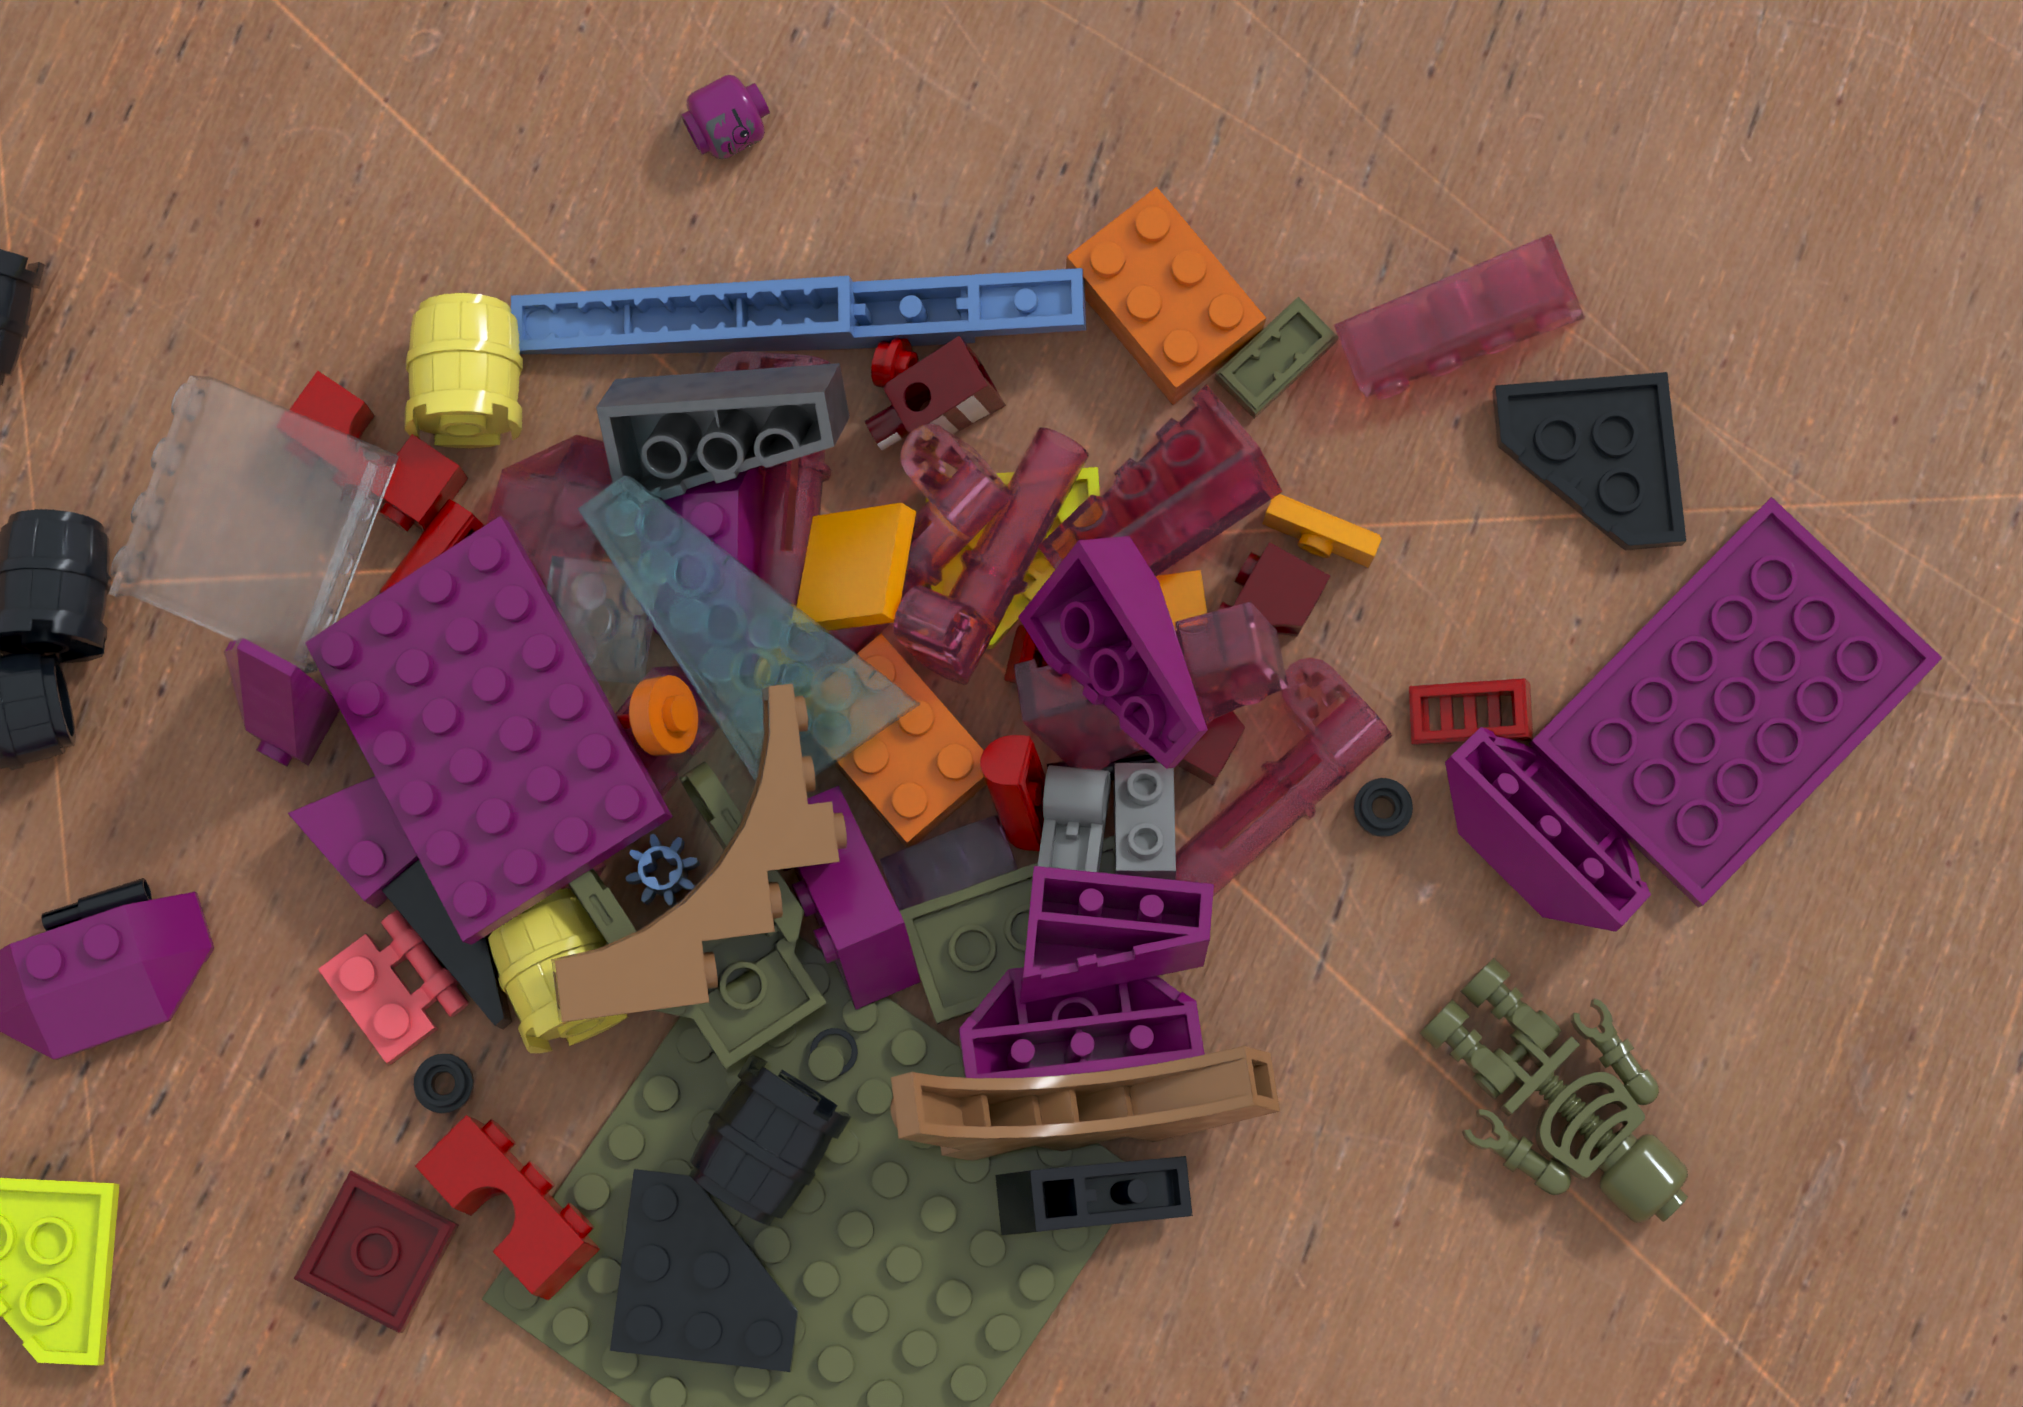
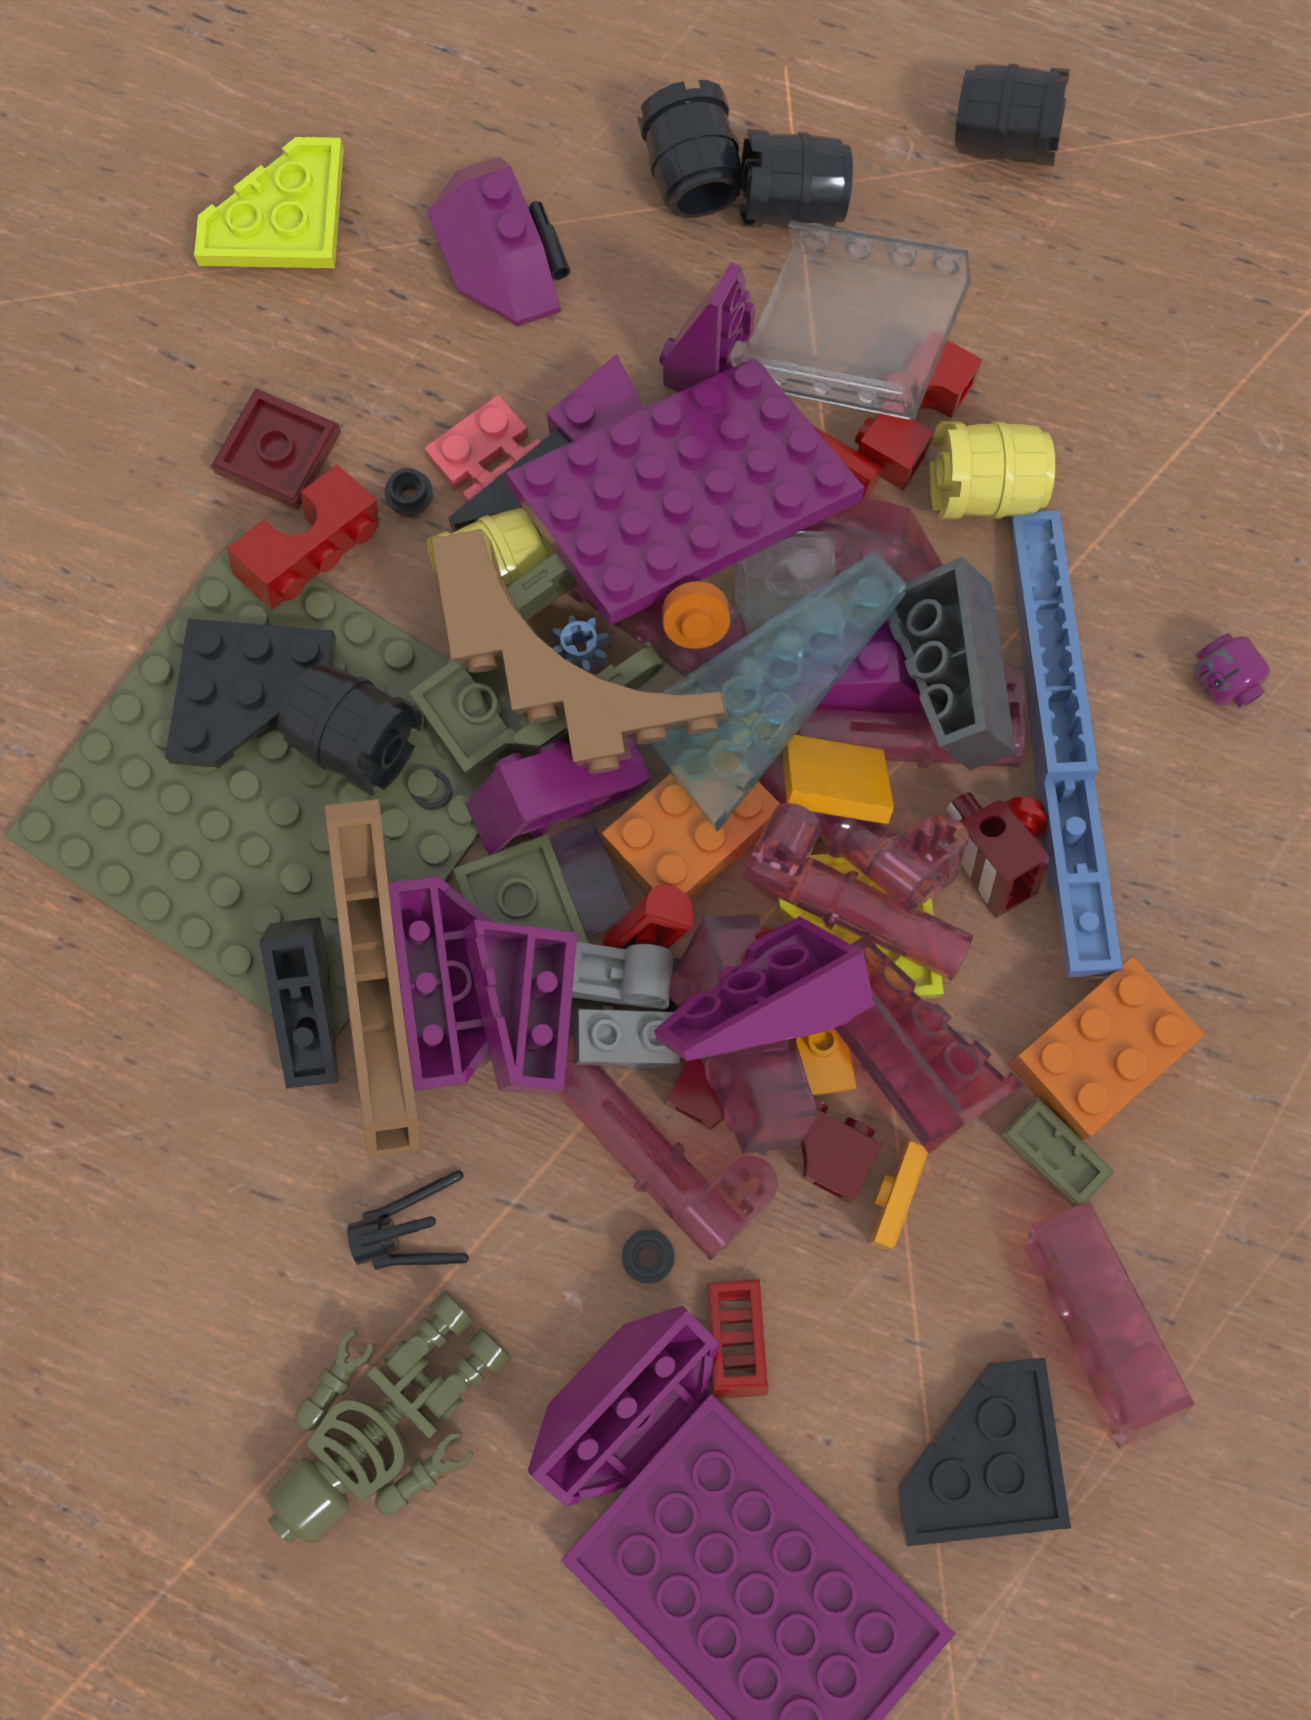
camera: 90 degrees right, 5 degrees down
(1362, 1111) = (376, 1238): none -> black plant

